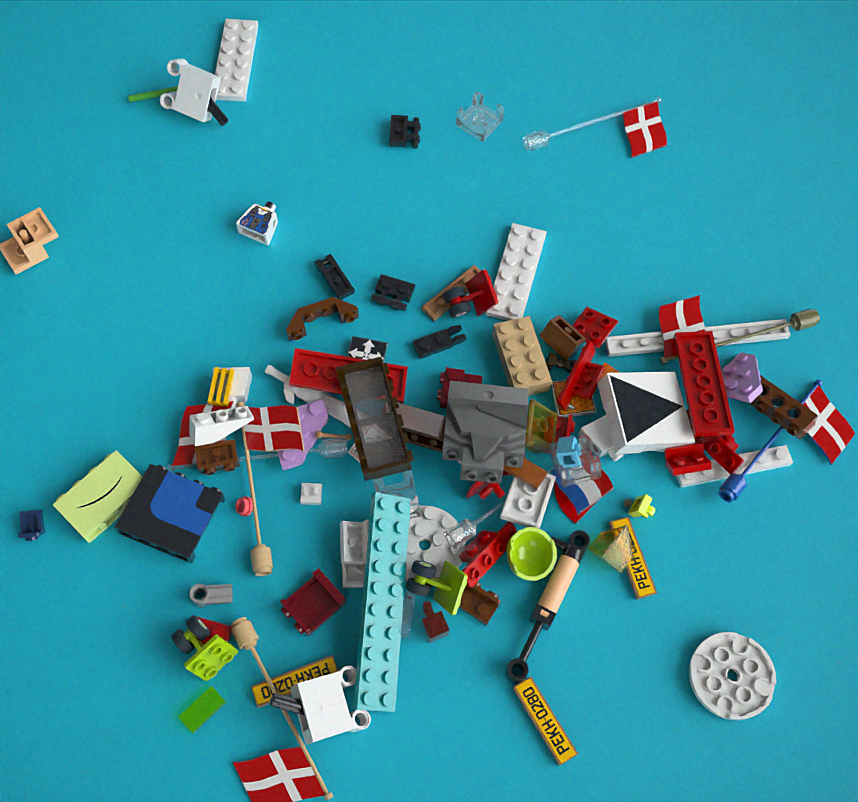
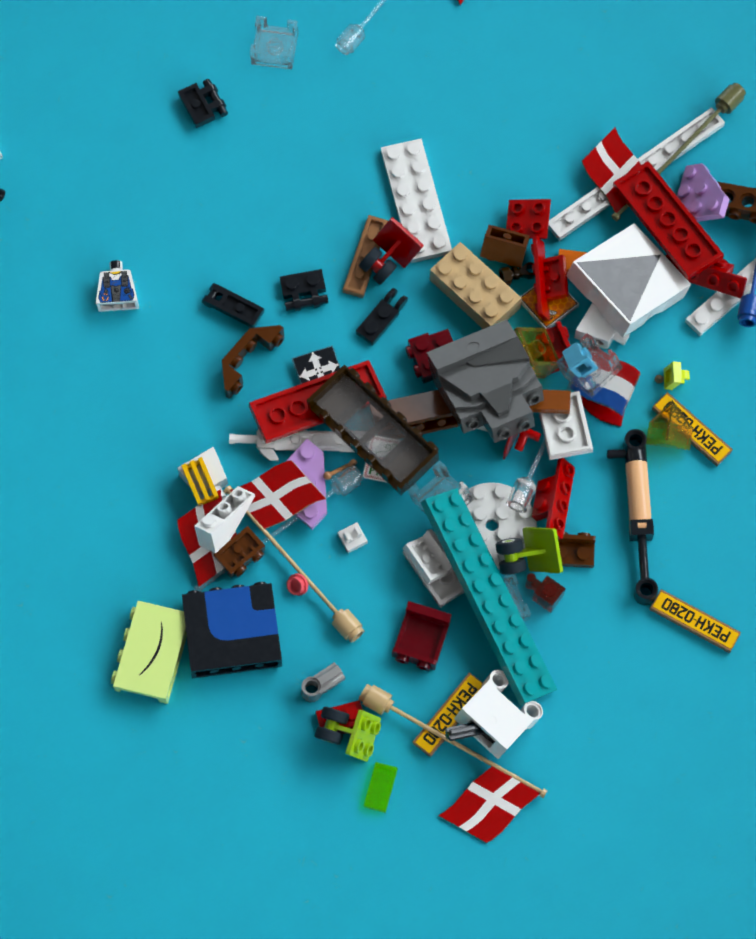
camera: 25 degrees left, 5 degrees up
(31, 524) = (102, 717): dark blue bracket -> none
(531, 553) = (598, 477): lime cylinder -> none
(686, 459) = (692, 305): red bracket -> none

